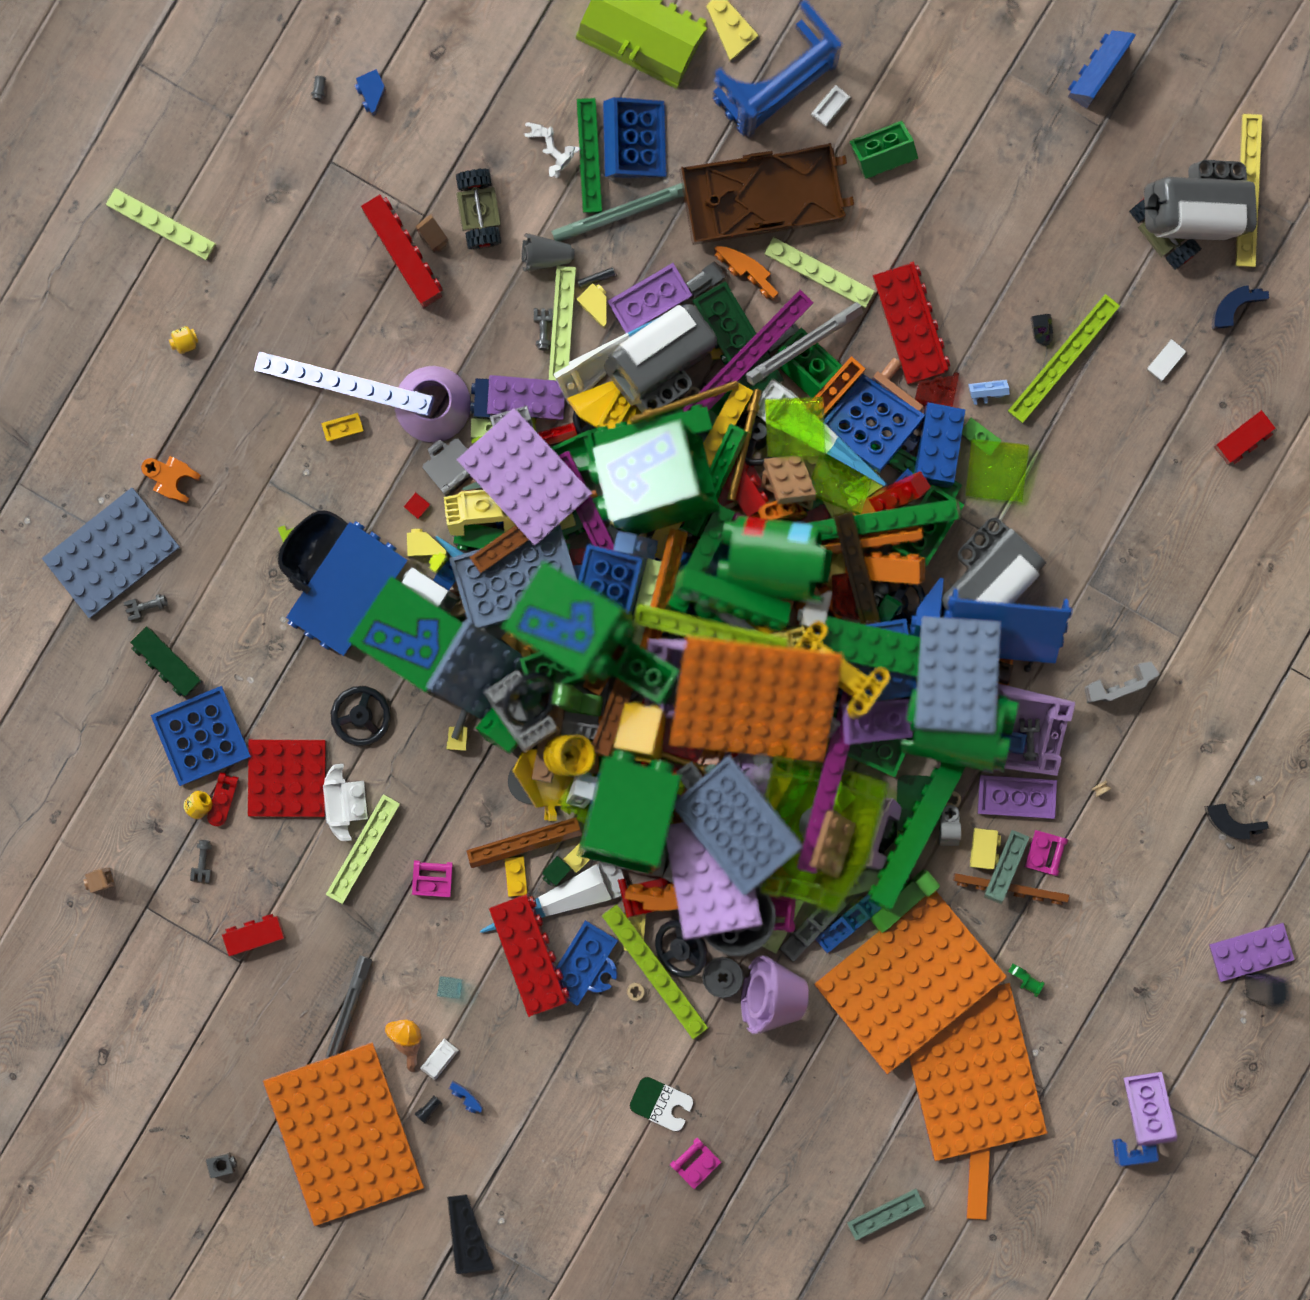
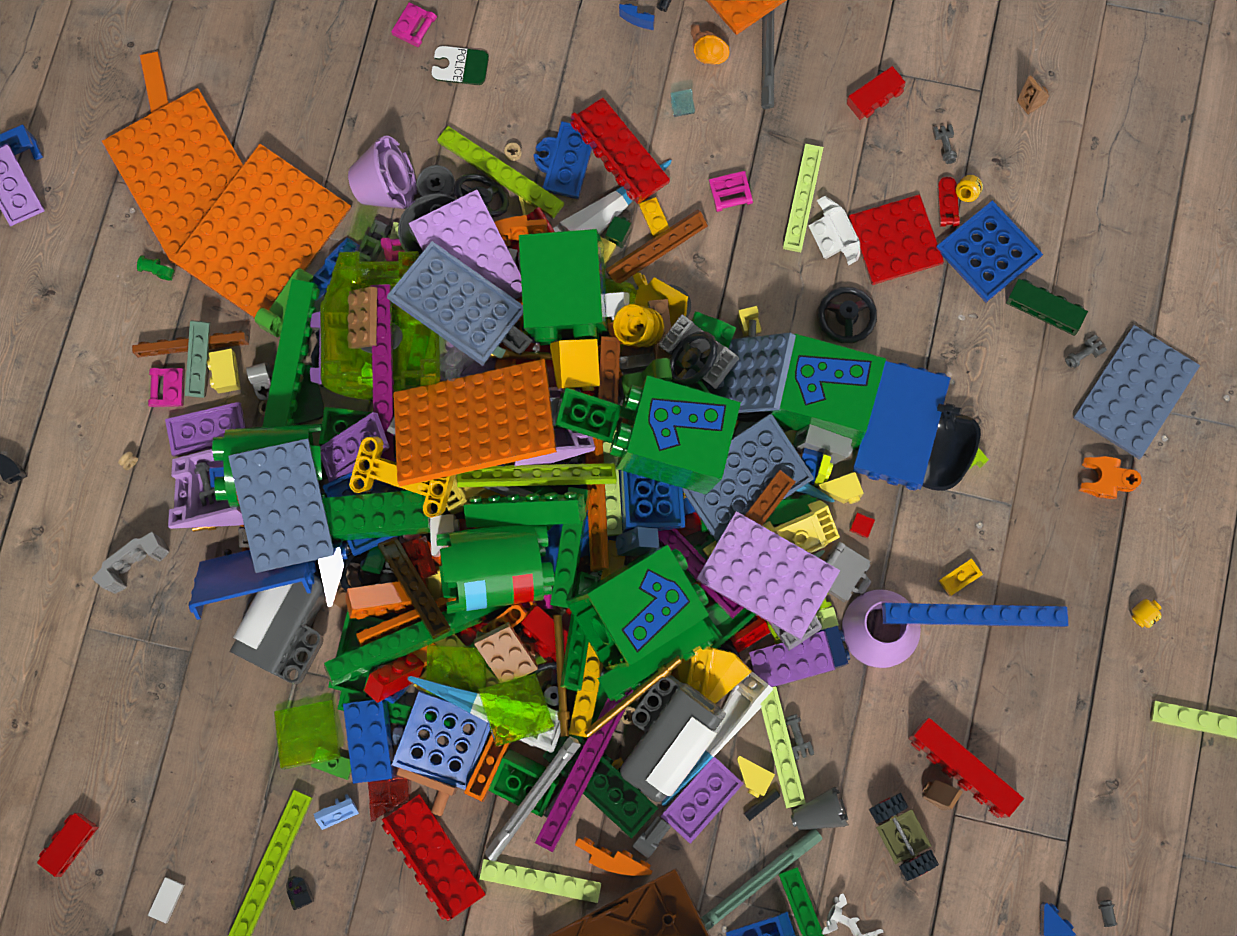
camera: 170 degrees right, 10 degrees down
(439, 1059) = (671, 43): white tile -> none
(885, 1214) = (230, 32): sand green plate -> none

